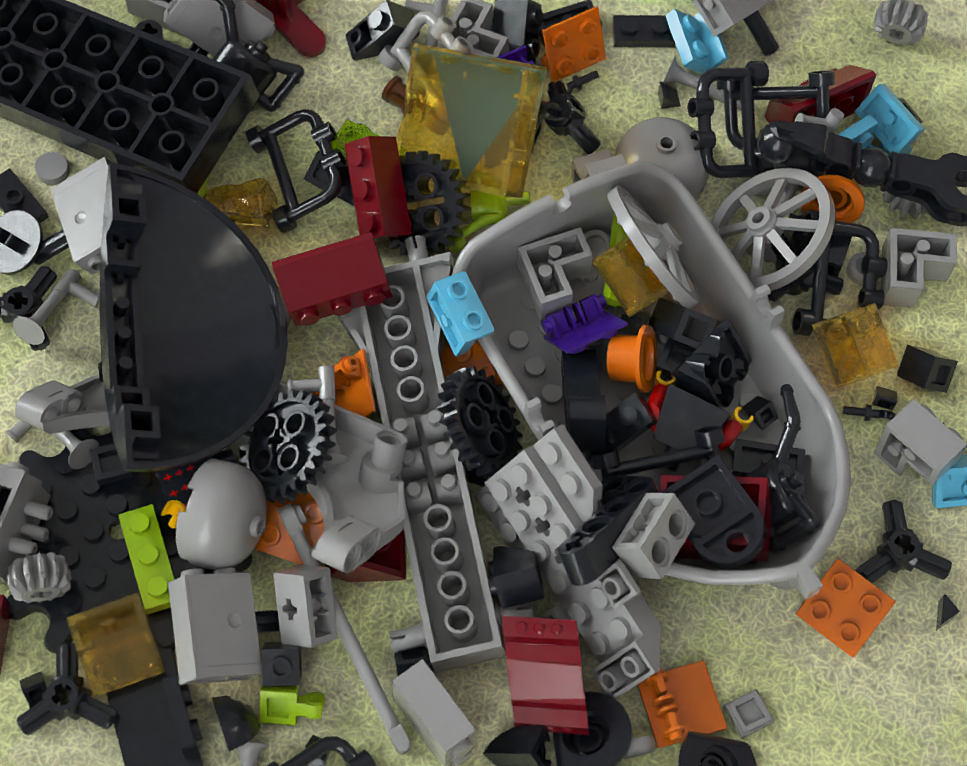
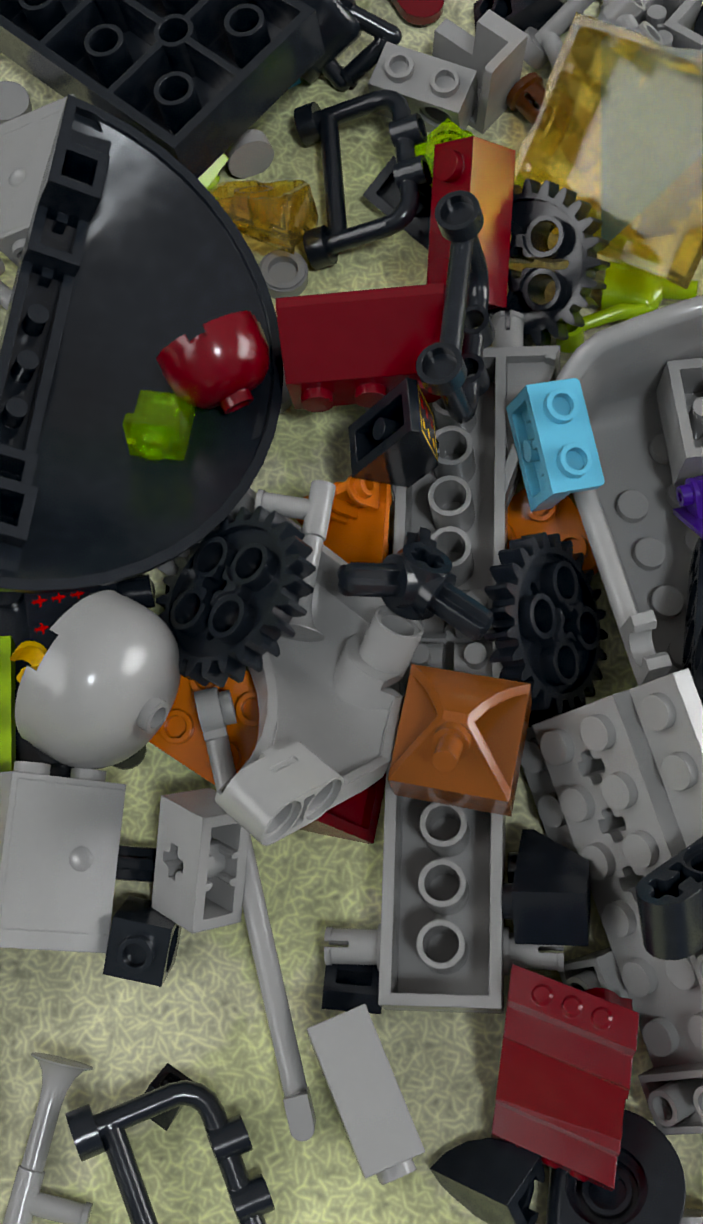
camera: 15 degrees right, 5 degrees up
(215, 354) = (159, 426): none -> clear neon green bracket
(224, 169) = (249, 154): none -> light grey tile
(236, 721) = (47, 1020): black brick -> none
(244, 309) = (218, 364): none -> dark red cylinder
(265, 240) = (284, 273): none -> light grey tile
(283, 705) = (135, 1010): lime plate -> none
(330, 100) = (429, 84): none -> light grey brick
(355, 84) = (496, 55): none -> light grey panel
(363, 331) = (395, 438): none -> black slope
(387, 240) = (443, 365): none -> black bar
(397, 414) = (417, 586): none -> black bush
(443, 498) = (461, 739): none -> dark orange piece

